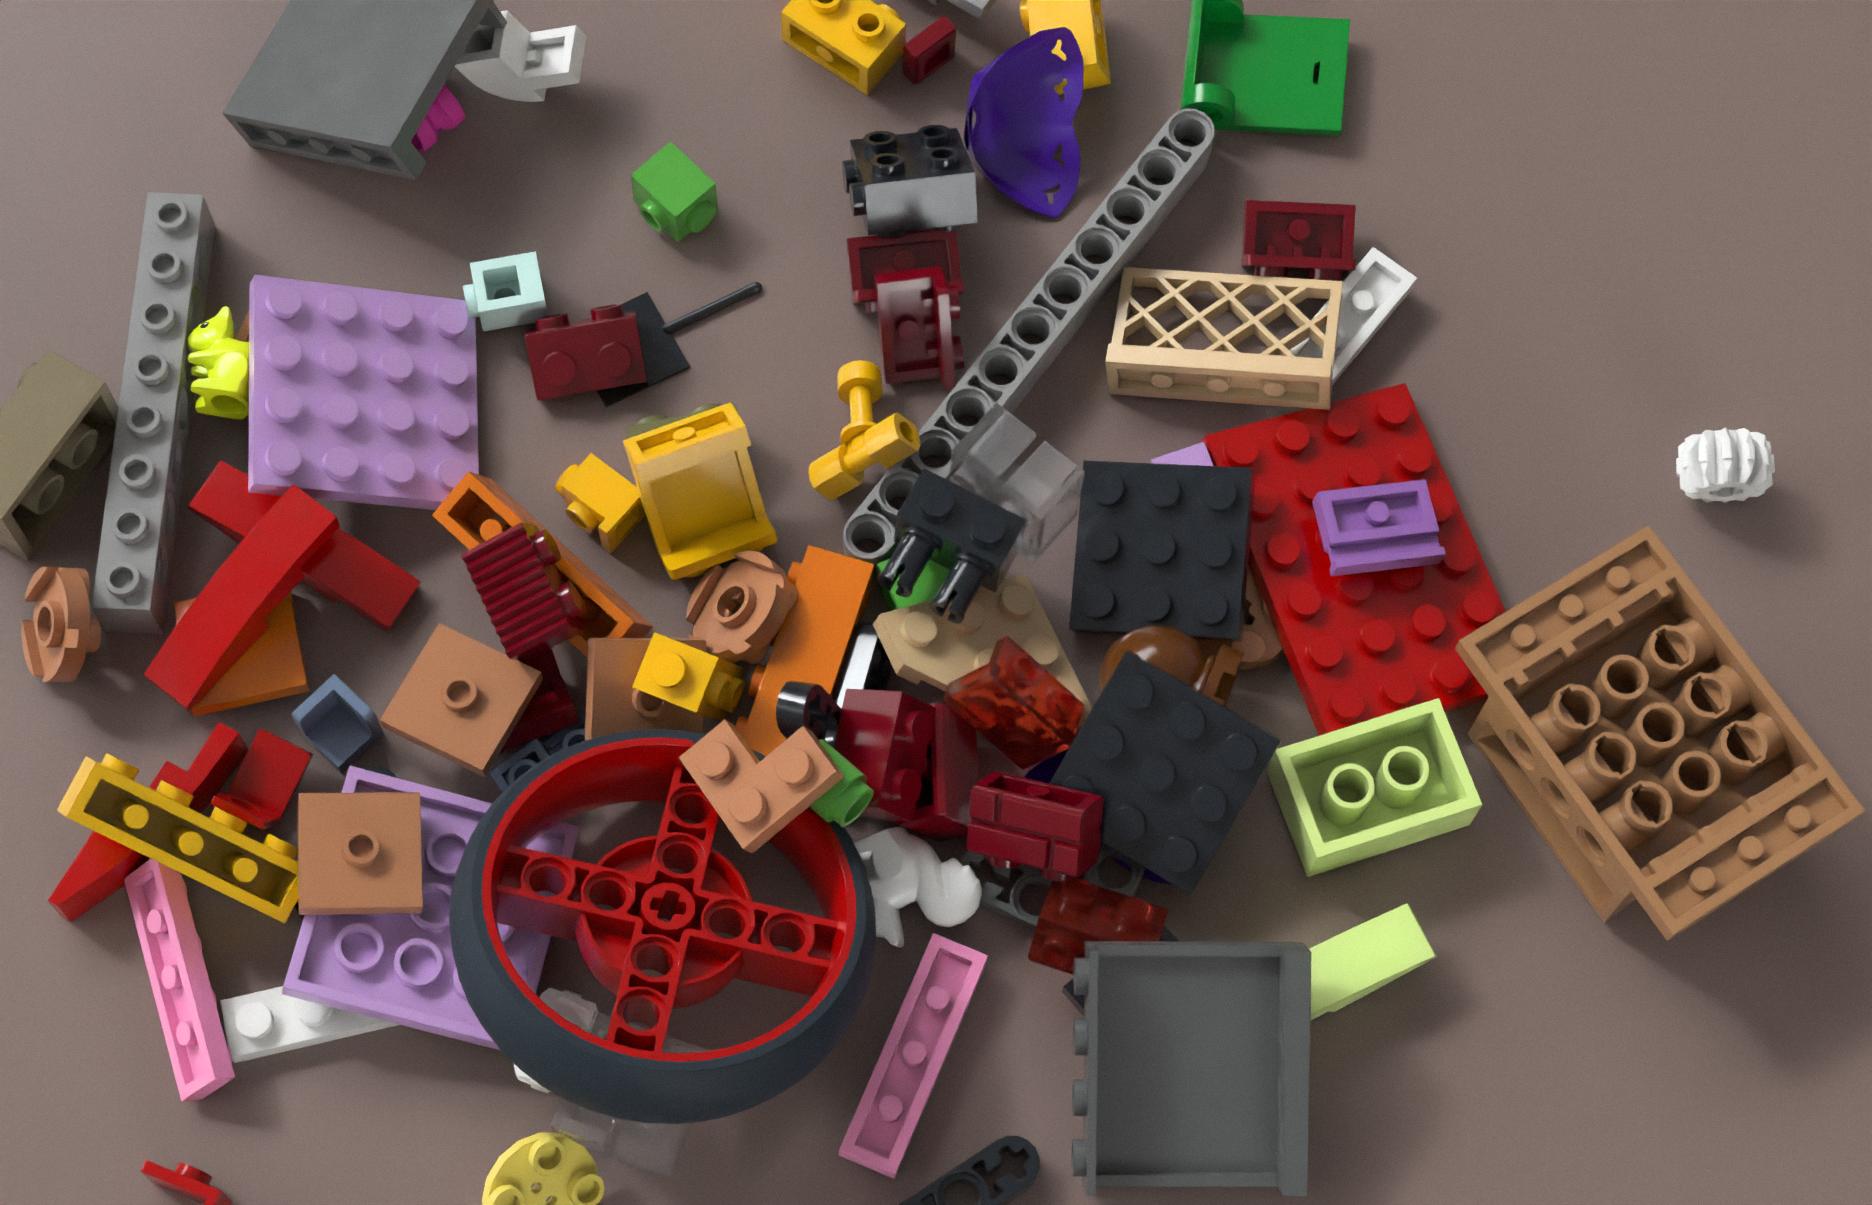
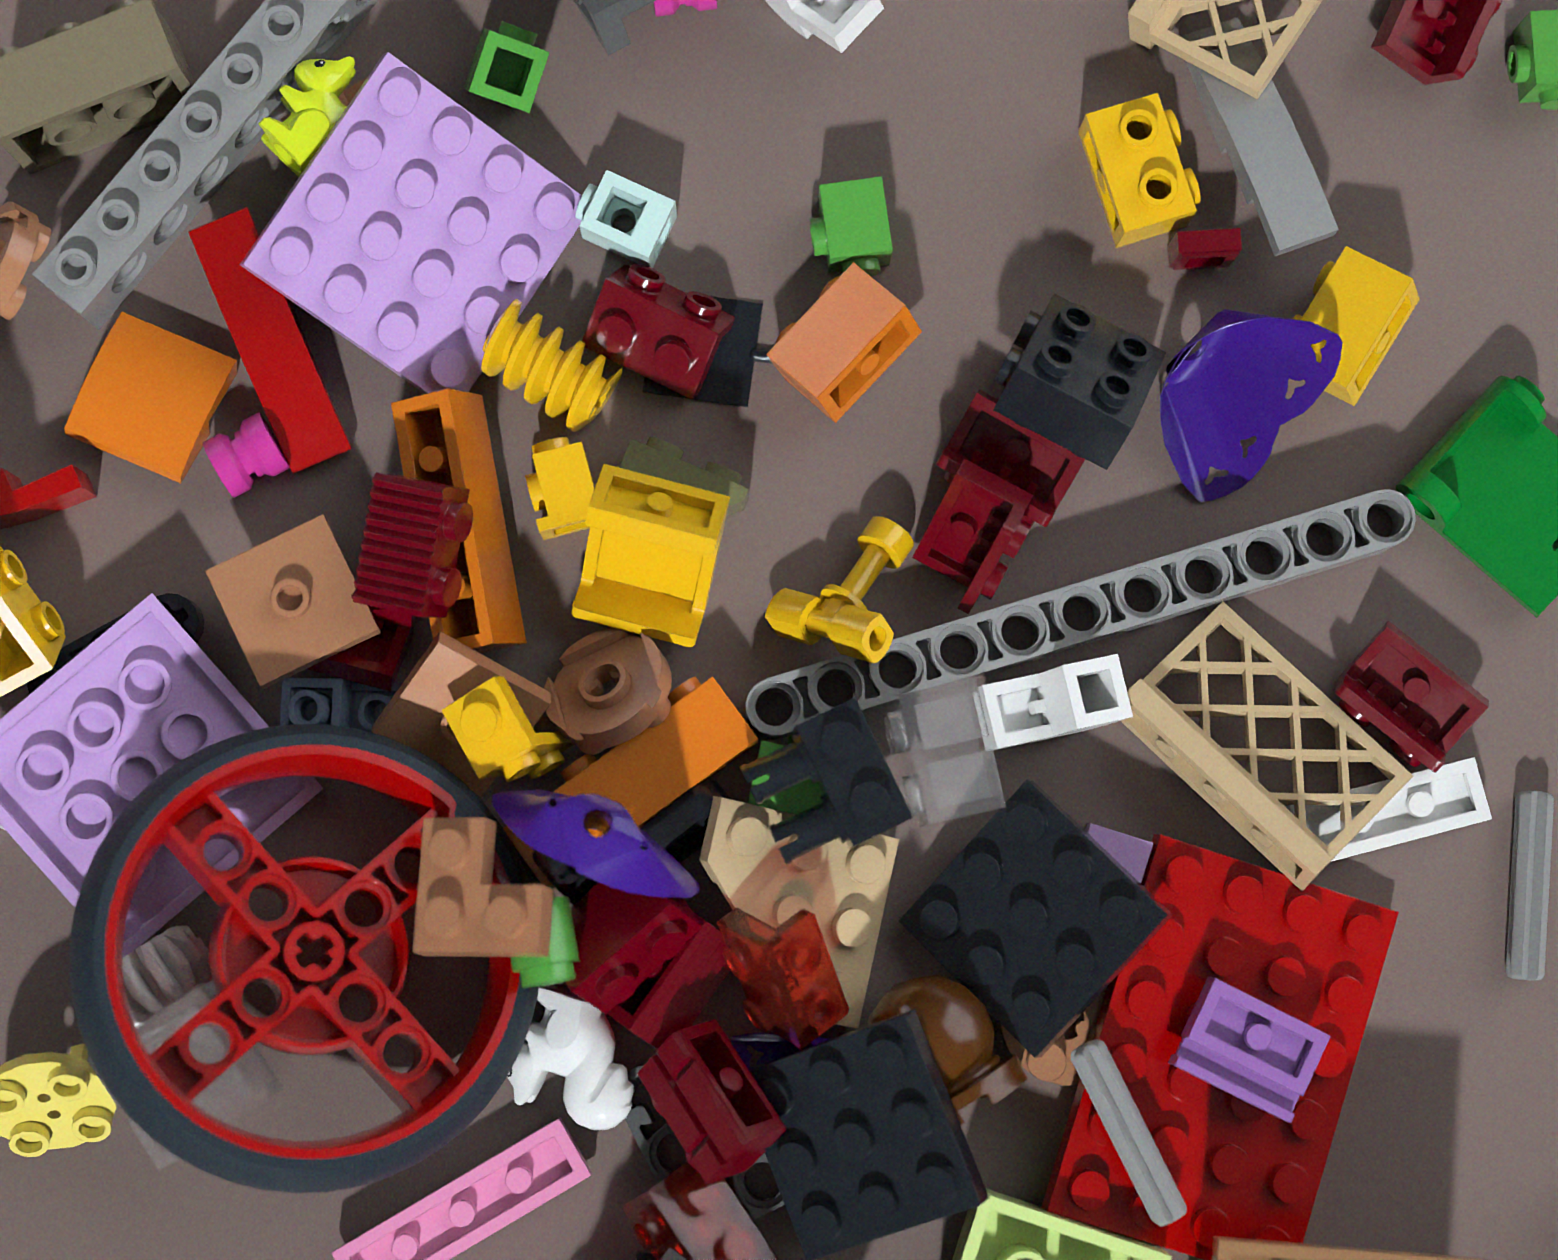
camera: 35 degrees right, 15 degrees up
(239, 597) = (169, 359): red slope -> none
(265, 781) = (76, 545): red bracket -> none
(337, 723) = (182, 534): sand blue panel -> none
(344, 246) = (507, 66): none -> bright green brick
(346, 633) = (250, 452): none -> dark pink wheel
(359, 853) = (98, 686): nougat plate -> none
(526, 426) = (547, 368): none -> yellow piece
(727, 268) = (844, 342): none -> orange brick
(803, 676) = (555, 828): none -> dark purple piece
(1069, 395) = (1055, 702): none -> white brick
(1342, 639) = (1128, 1132): none -> light grey axle
(1477, 308) = (1530, 885): none -> light grey axle

